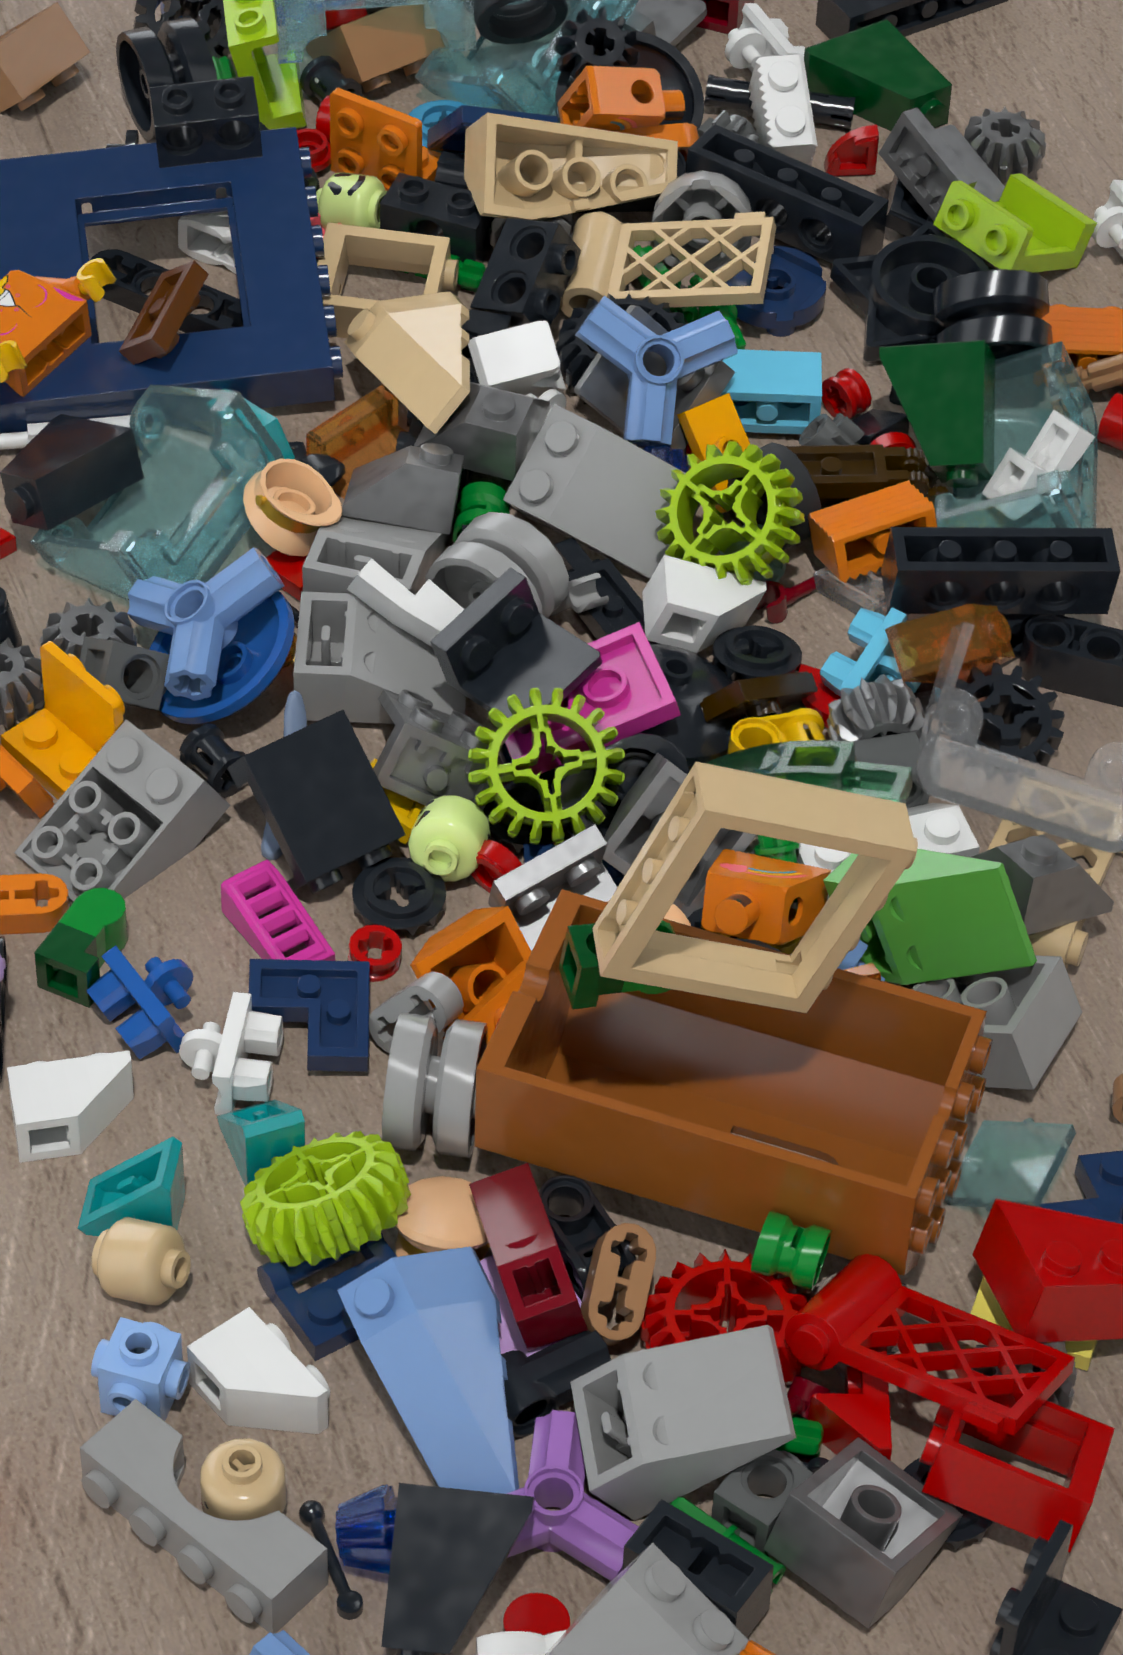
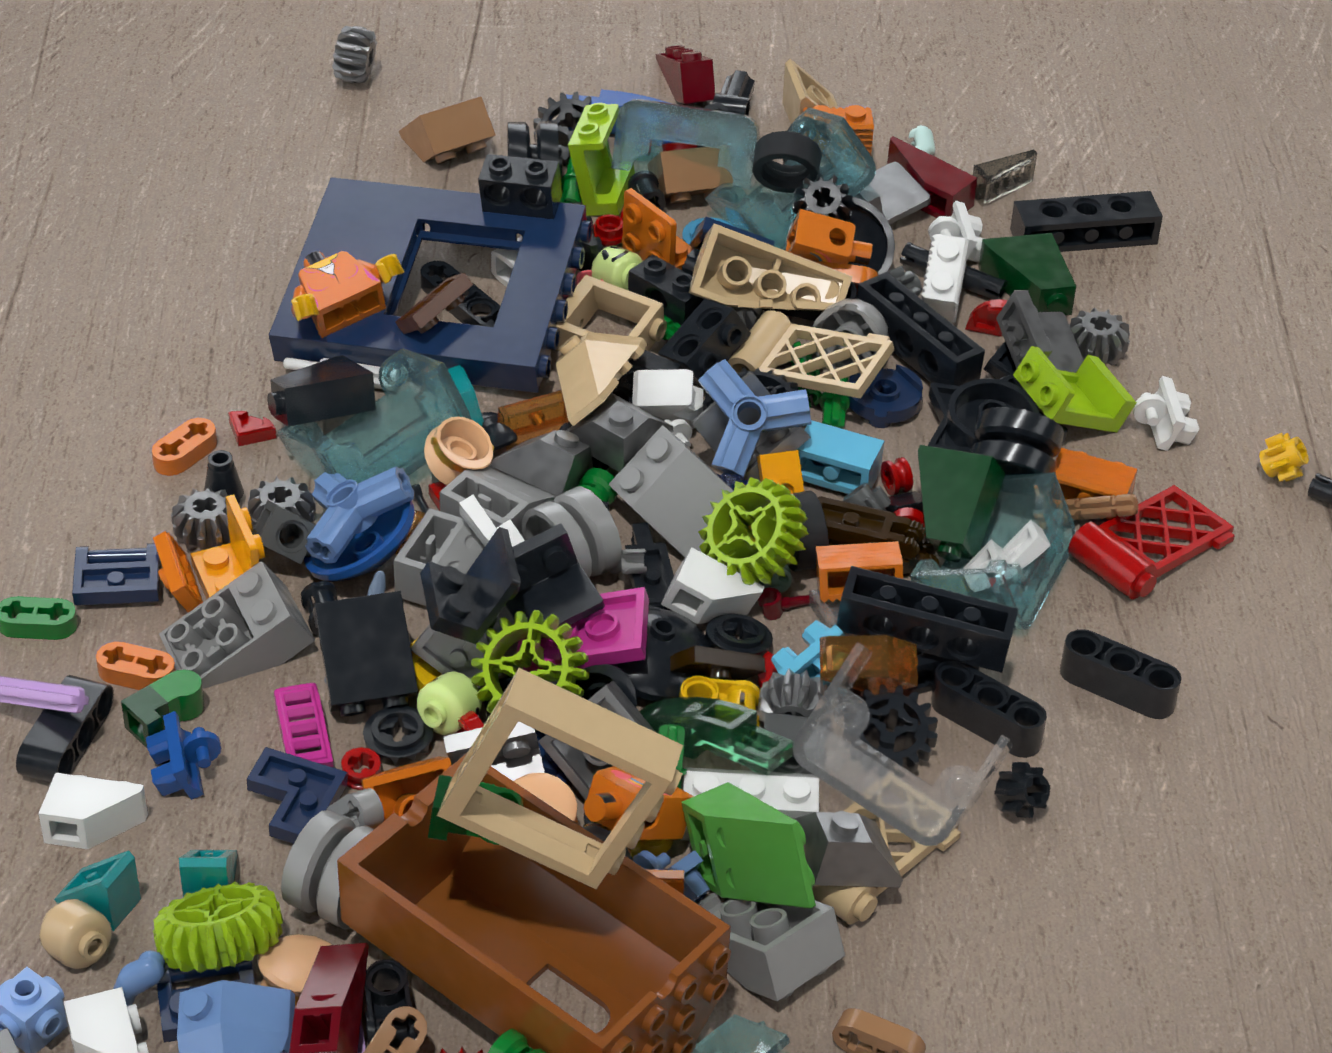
camera: 20 degrees right, 5 degrees down
(228, 1052) = (216, 807): white hips -> none
(259, 1285) = (140, 975): none -> medium blue arm
(450, 685) = (471, 602): none -> black bracket

